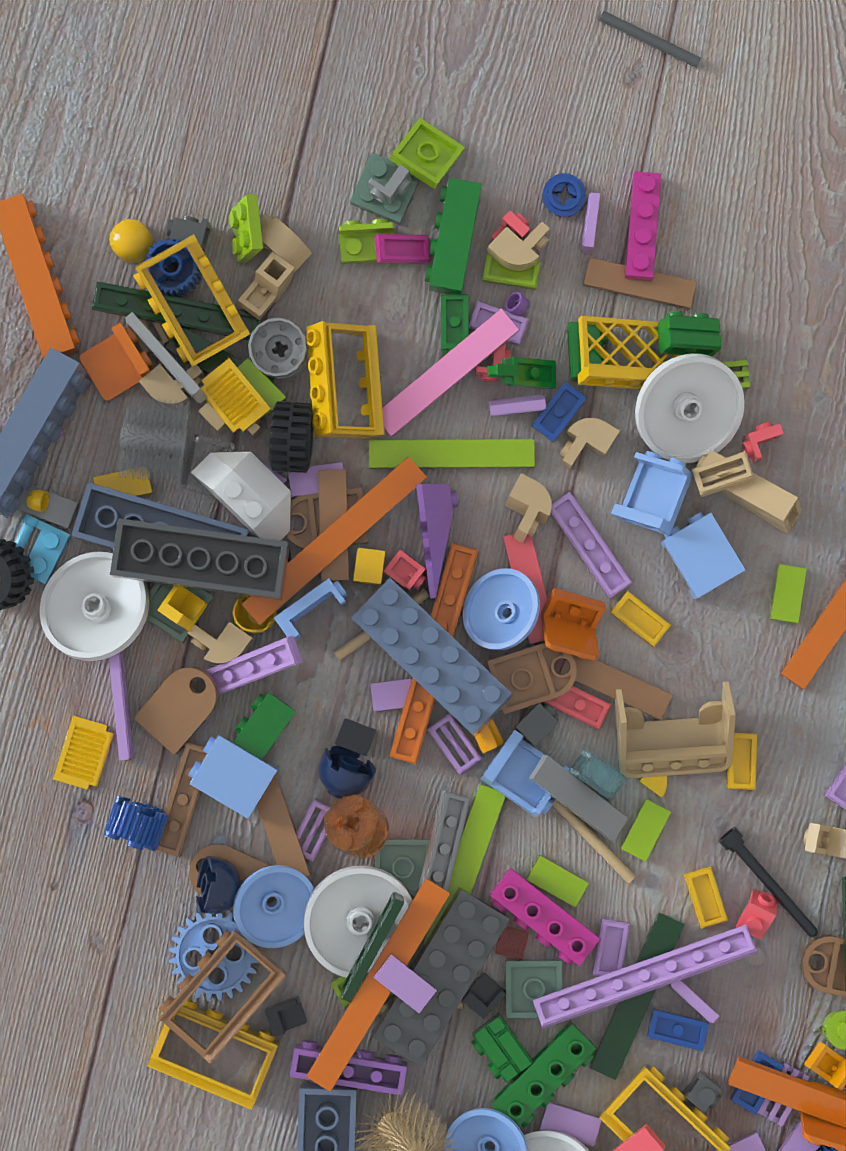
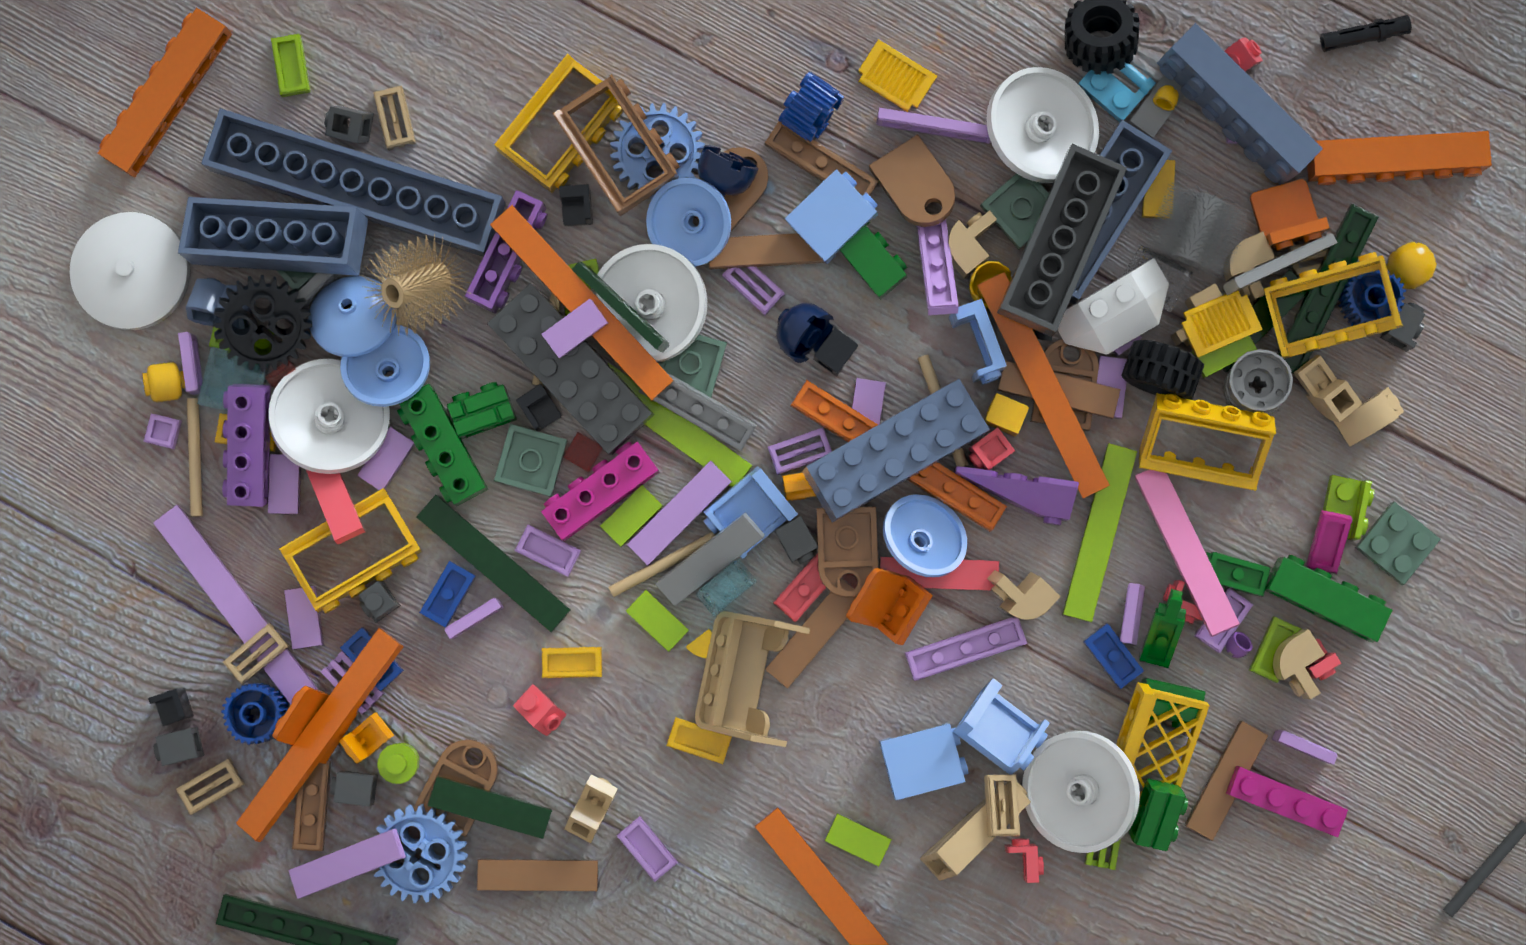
camera: 100 degrees right, 0 degrees up
(182, 607) = (1017, 212): yellow panel -> none
(246, 224) = (1400, 386): lime plate -> none
(370, 823) = (745, 326): clear orange brick -> none
(396, 185) = (1399, 553): light grey bracket -> none
(427, 153) = (1424, 595): lime plate -> none
(542, 838) = (679, 513): none -> lavender tile
(556, 185) = (1354, 723): blue gear -> none
(591, 433) = (1082, 681): tan brick -> none
(640, 618) = (874, 678): yellow tile -> none
(644, 976) = (511, 574): lavender tile -> none
(733, 841) = (618, 707): black piece -> none

